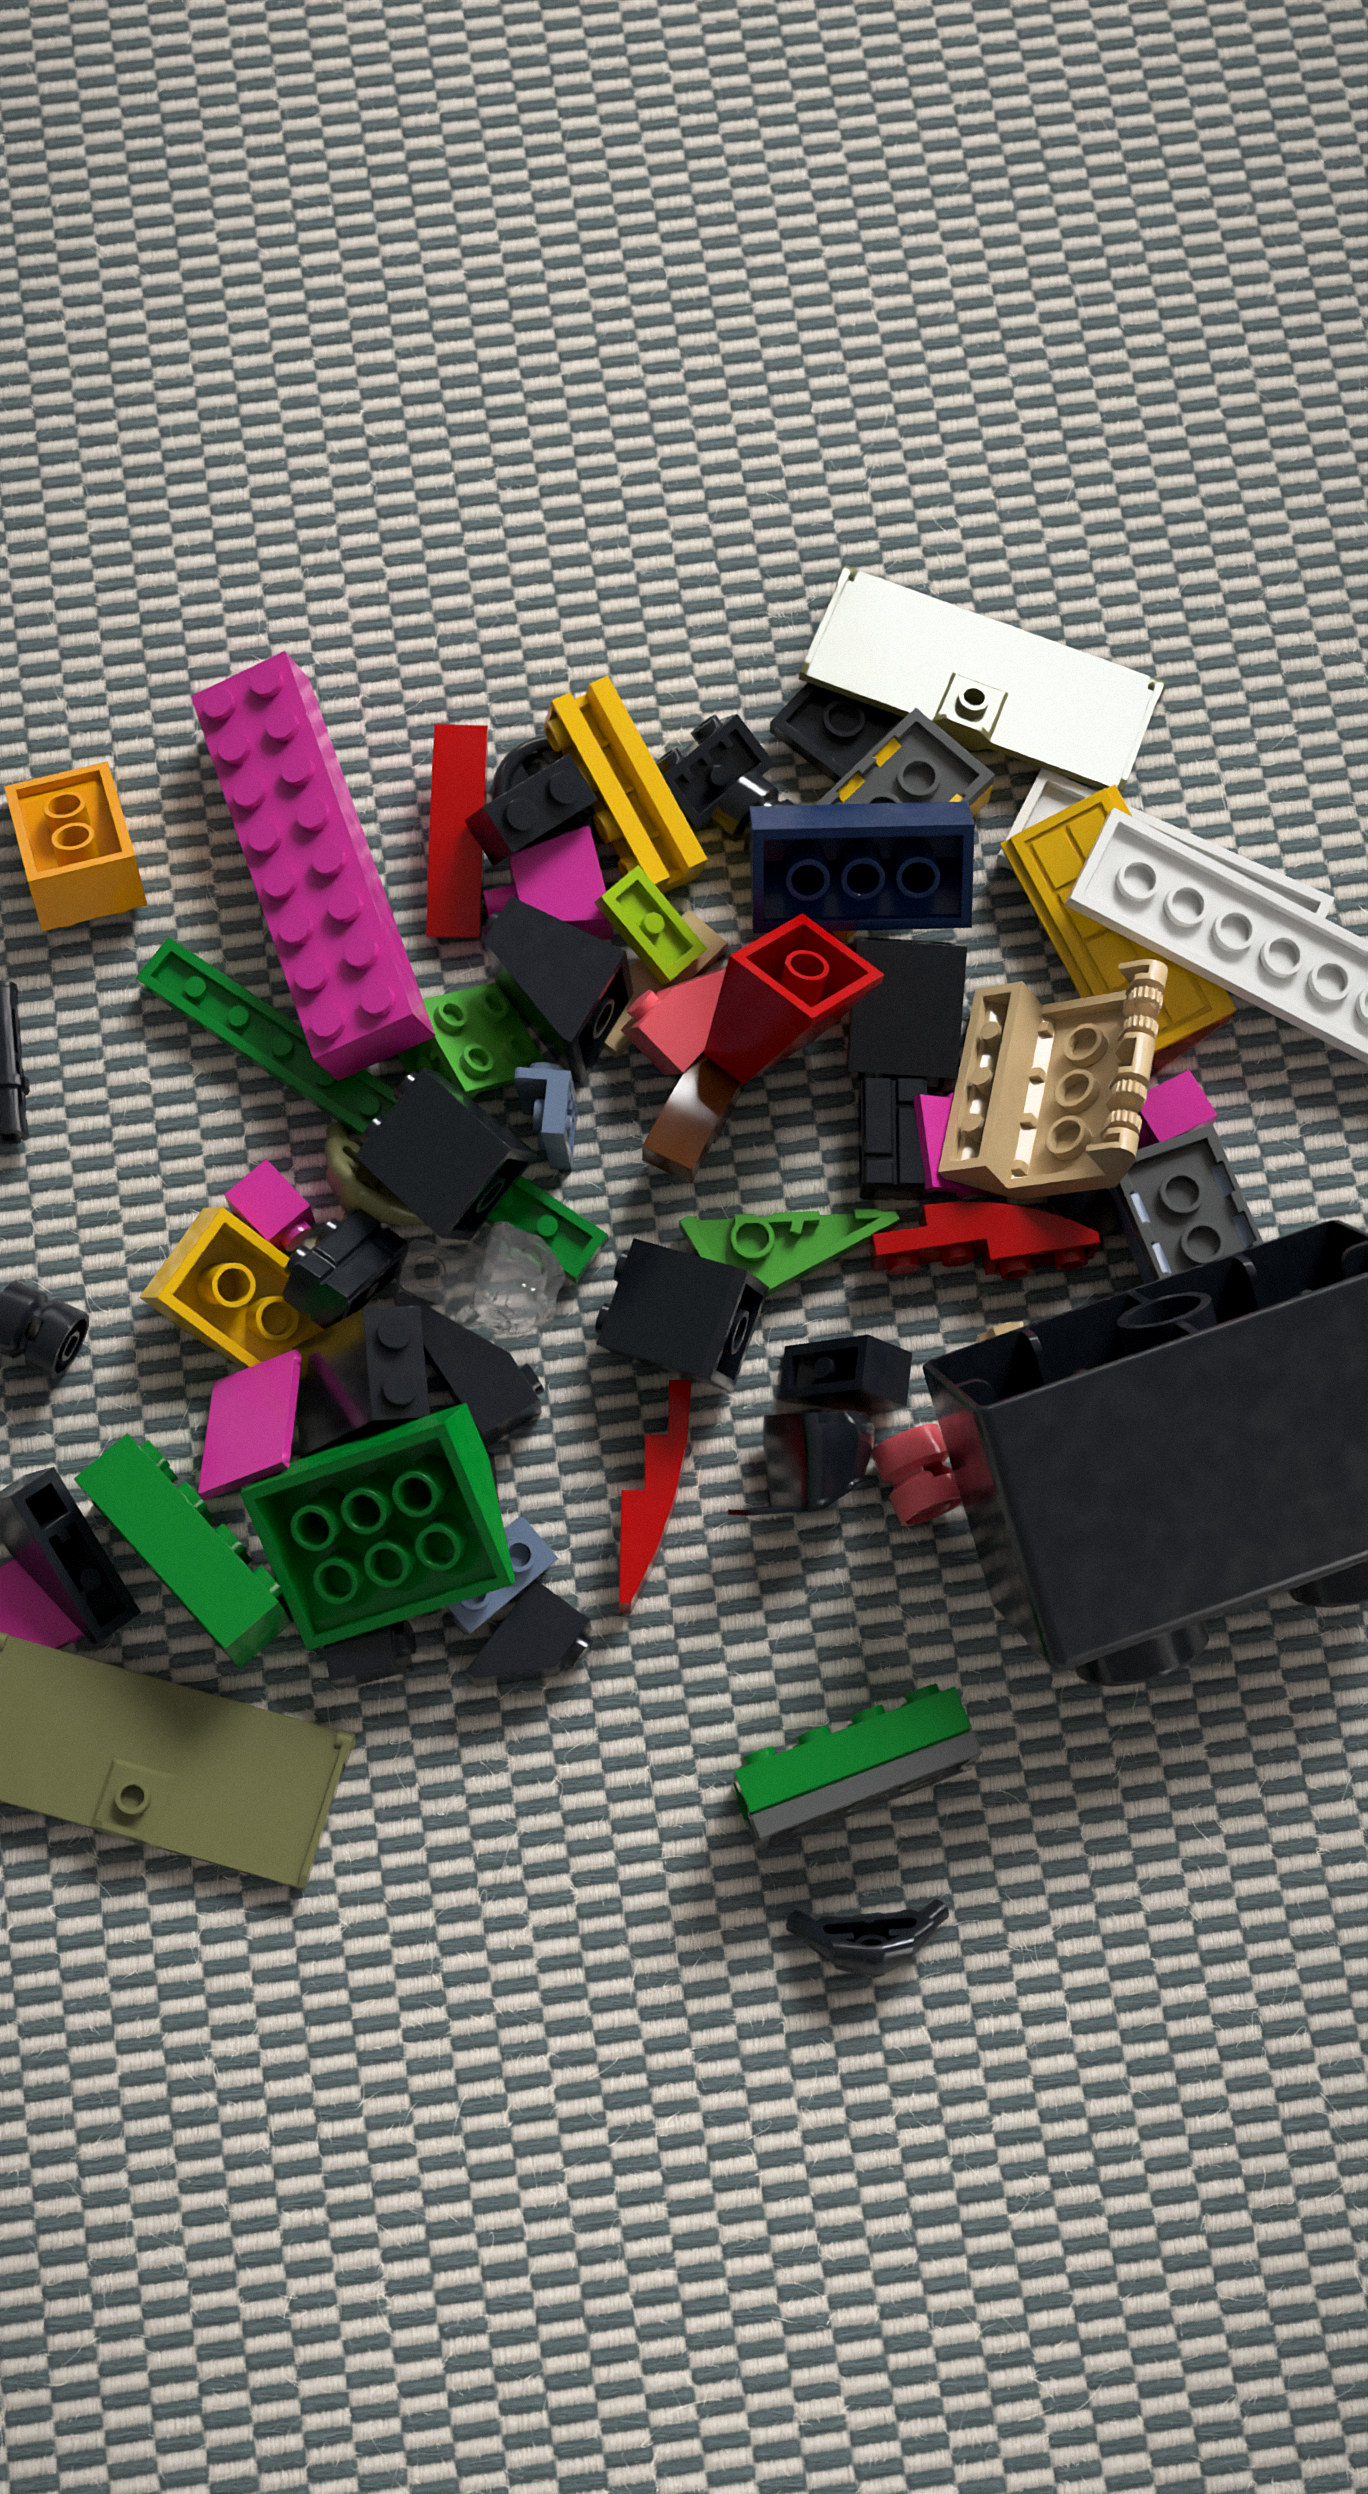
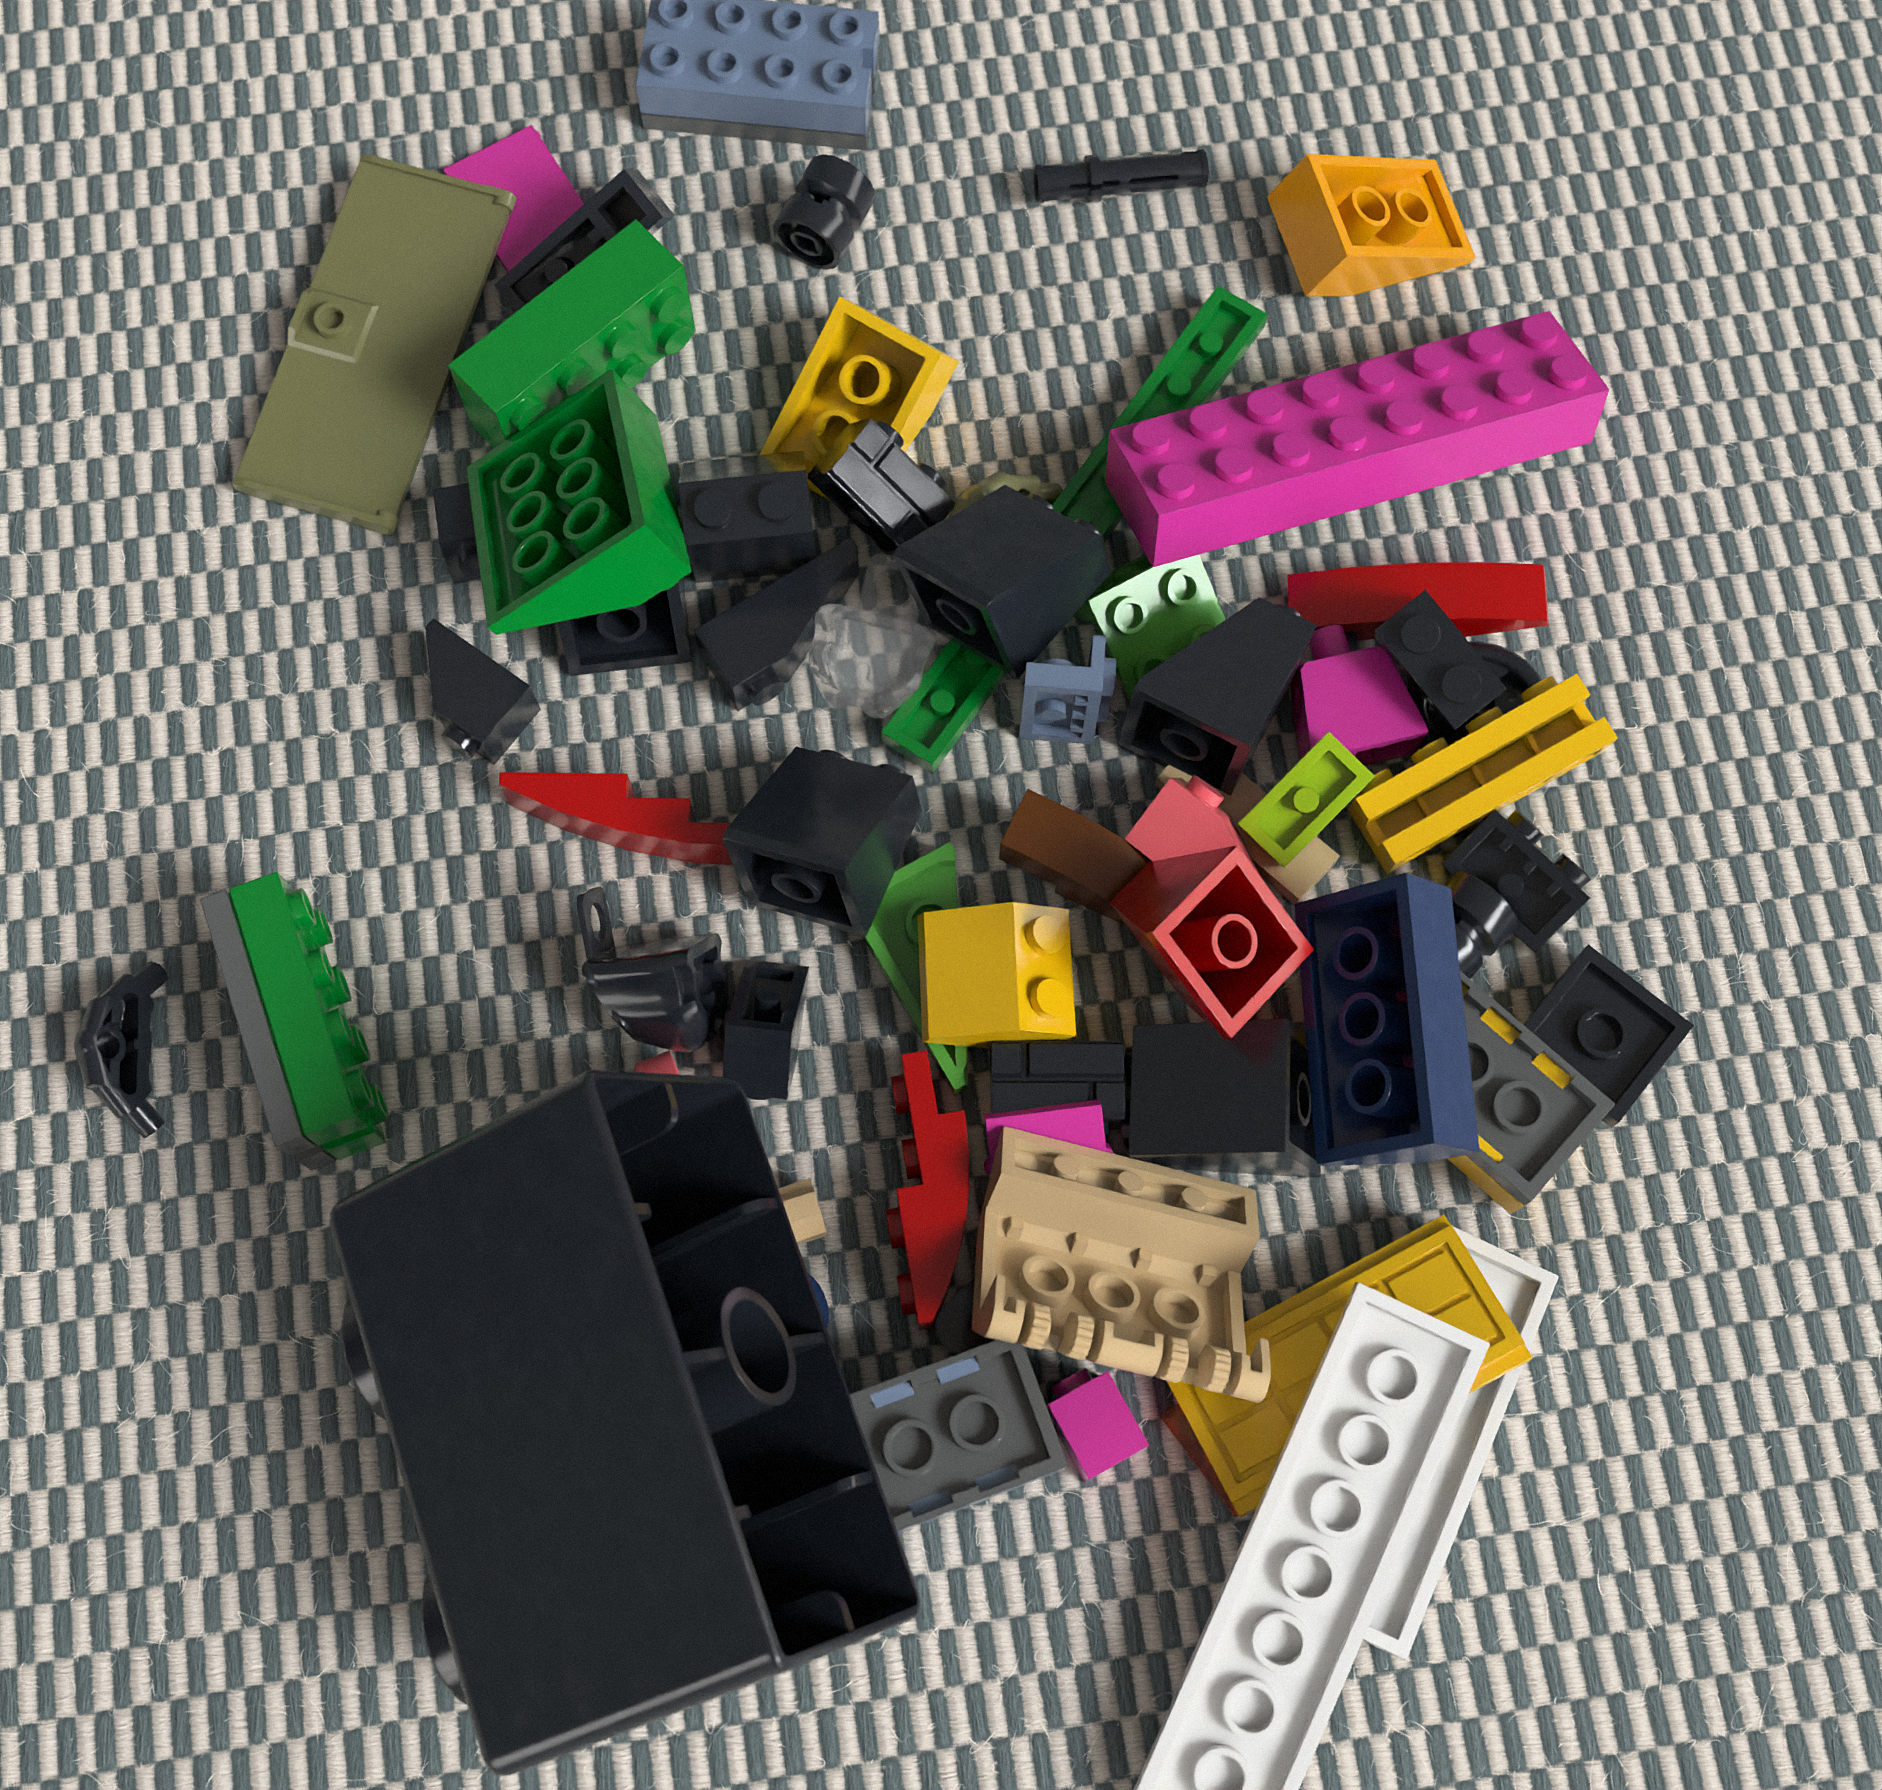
camera: 90 degrees right, 0 degrees up
(250, 1425) = (705, 398): dark pink piece -> none
(271, 1207) = (959, 426): dark pink brick -> none
(529, 1559) = (546, 661): sand blue bracket -> none
(806, 1178) = (996, 974): none -> yellow slope
(982, 680) = (1672, 1209): door -> none

